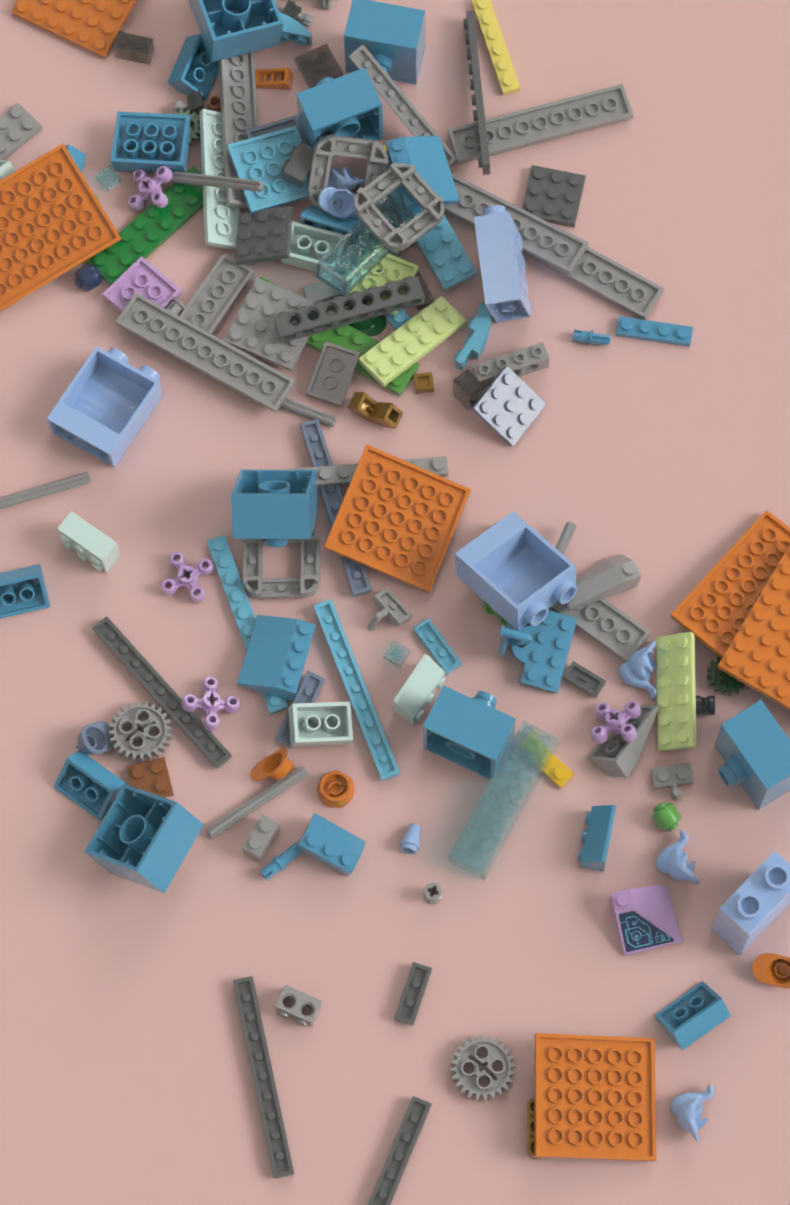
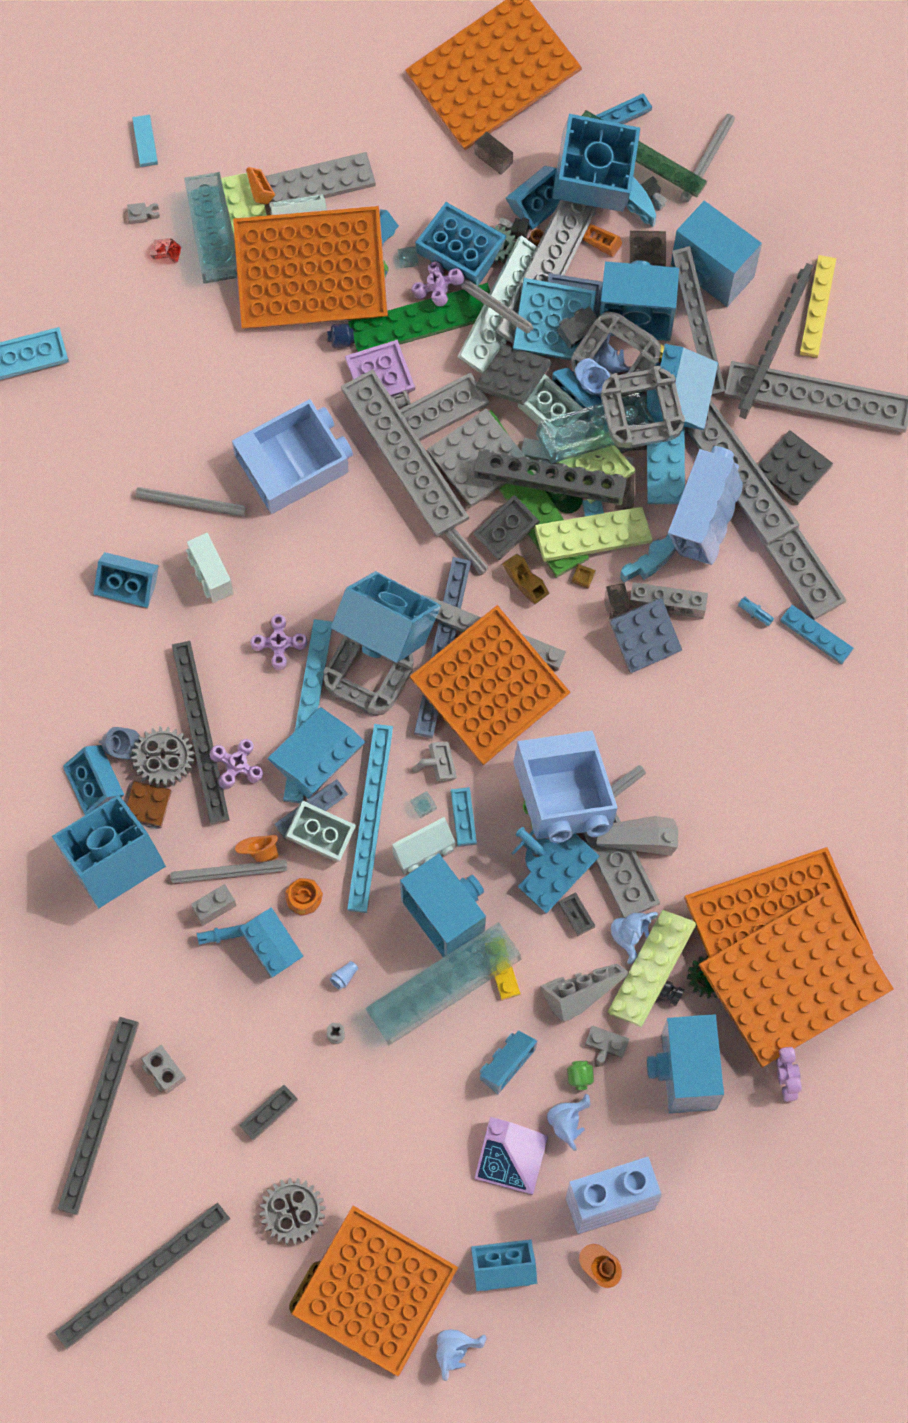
camera: 25 degrees right, 0 degrees up
(616, 722) = (581, 967): lavender gear -> none

